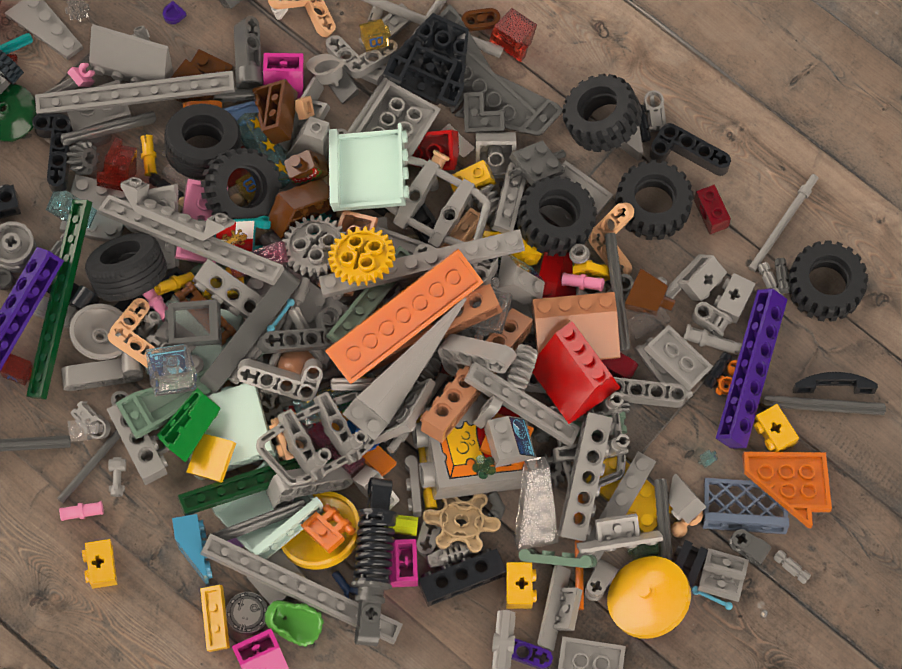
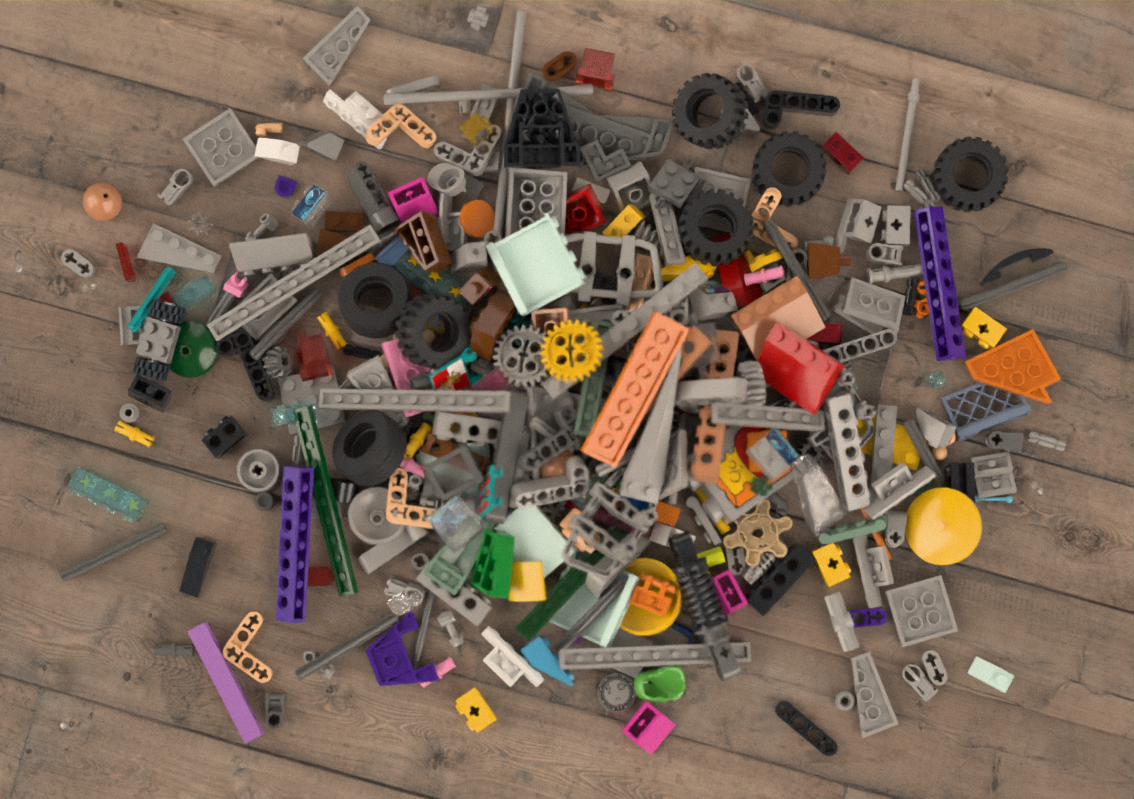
camera: 20 degrees left, 15 degrees up
(40, 65) = (194, 292): none -> clear light blue slope
(44, 476) = (391, 660): none -> dark purple wing
(137, 193) = (347, 381): light grey slope -> none
(154, 532) = (507, 662): none -> white bracket
(188, 38) = (311, 206): none -> slope
(215, 358) = (486, 492): none -> teal flag
(215, 618) = (593, 710): yellow plate -> none
(290, 302) = (522, 447): medium azure hinge -> none
(304, 107) = (448, 227): light nougat plate -> none
(337, 112) = (477, 218): none -> orange tile
(439, 158) = (588, 222): light nougat bush -> none
(487, 411) = (743, 438): light grey beam -> none
(579, 249) = (751, 248): light grey plate -> none

